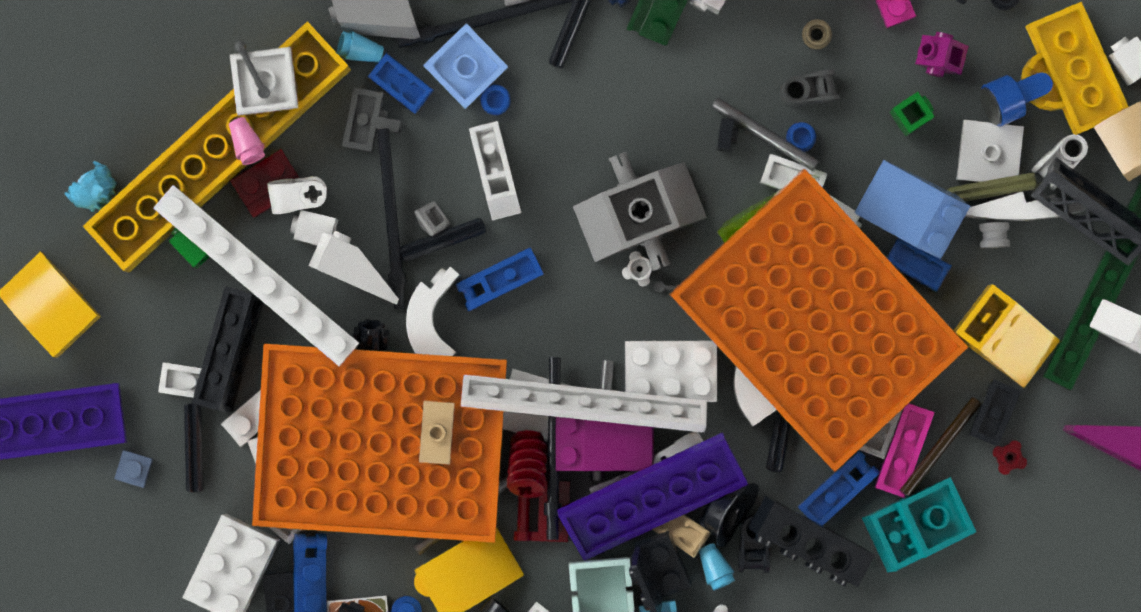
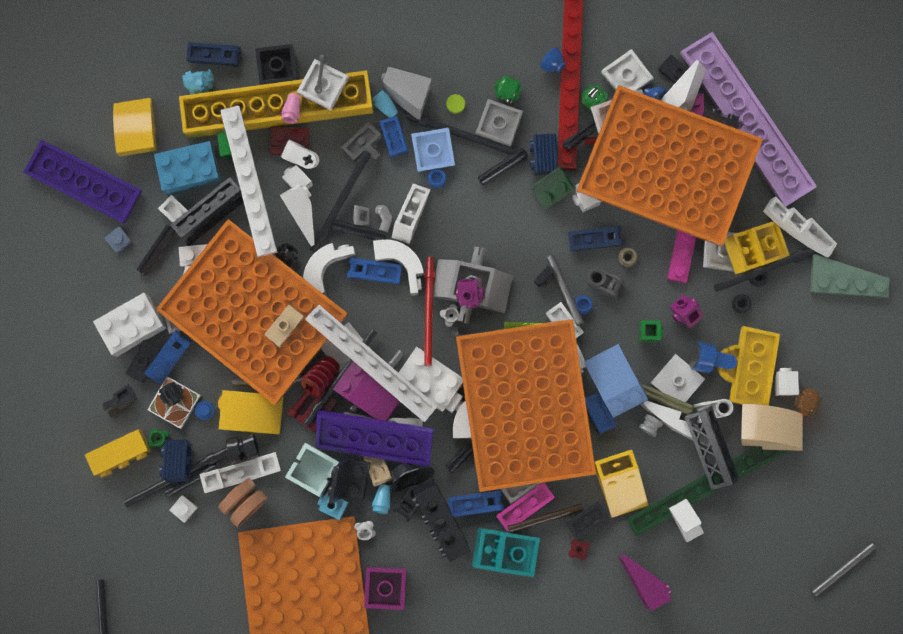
camera: 30 degrees right, 5 degrees down
(82, 136) = (213, 54): none -> dark blue plate
(159, 312) = (187, 168): none -> dark azure brick
(181, 94) = (276, 64): none -> black brick
(465, 197) = (386, 217): none -> light grey arm
(522, 232) = (397, 252): none -> white arch
(576, 237) = (429, 276): none -> red bar
(649, 224) = (470, 292): none -> magenta brick
(725, 379) = (455, 403): none -> white plate
(757, 39) = (594, 238): none -> dark blue plate

